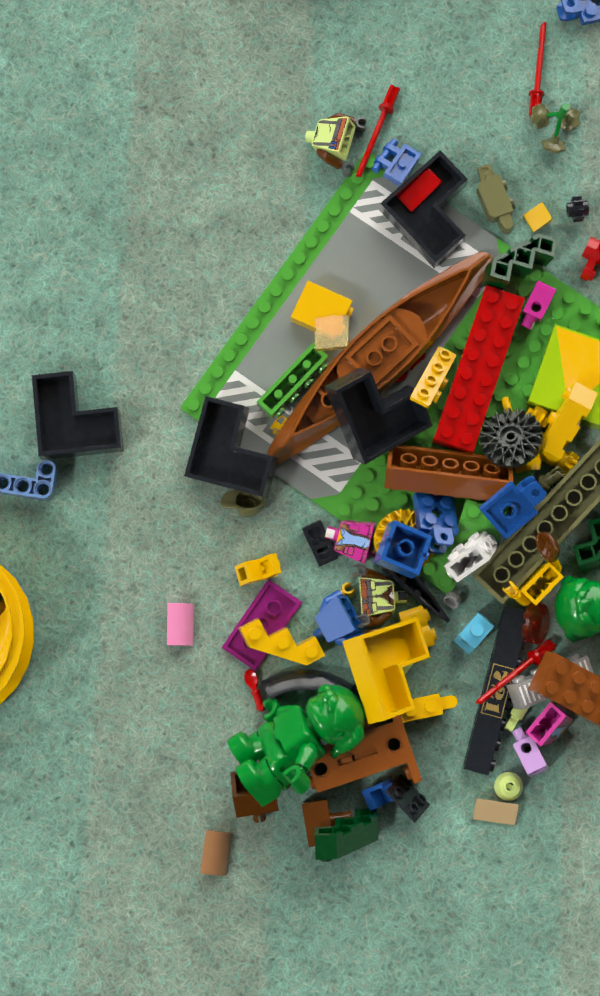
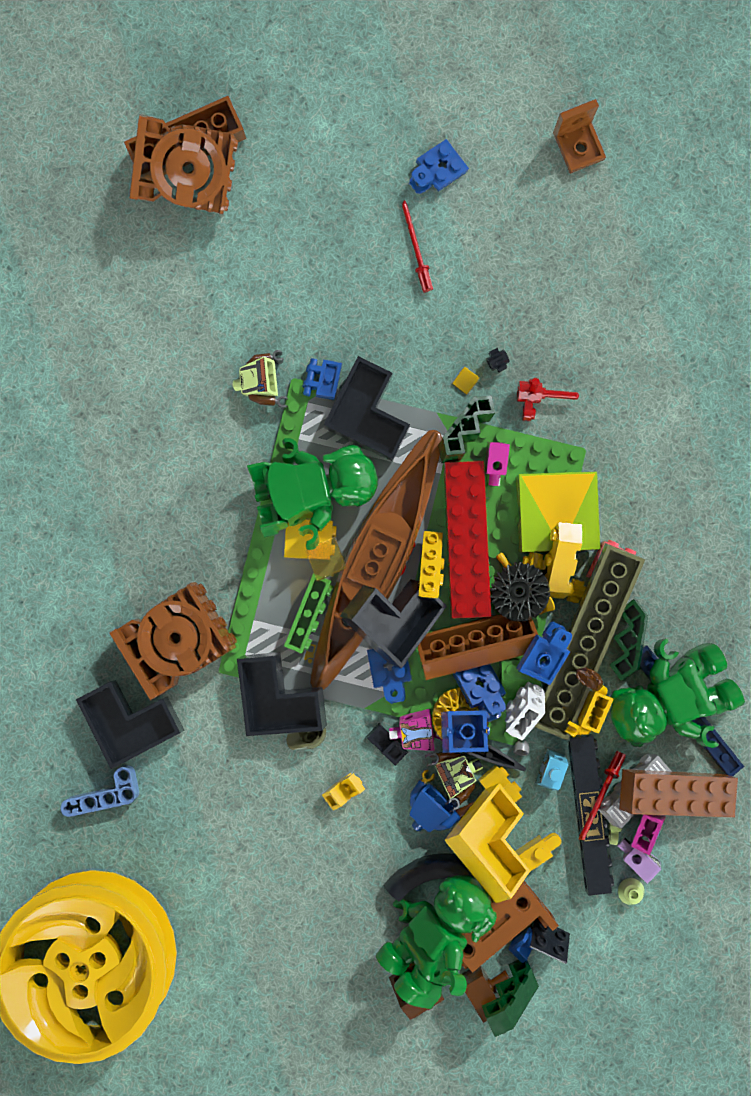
camera: 20 degrees left, 5 degrees up
(180, 624) = (294, 864): bright pink brick -> none
(186, 375) = (144, 659): none -> dark orange brick
(216, 853) = (403, 1050): medium nougat brick -> none
(251, 680) = (376, 888): red piece -> none
(274, 610) = (365, 835): magenta tile -> none
(281, 643) = (388, 849): yellow brick -> none
(336, 259) = (307, 490): none -> green piece
(349, 479) = (389, 680): none -> blue plate
(386, 108) = (294, 332): red piece -> none
(420, 190) = (353, 397): red slope -> none
(494, 198) = (421, 379): olive hinge -> none
(495, 811) = (628, 917): tan slope -> none
(536, 623) = (602, 744): clear red tile -> none
(550, 478) = (563, 616): olive pin -> none
(567, 119) = (457, 282): olive plant -> none

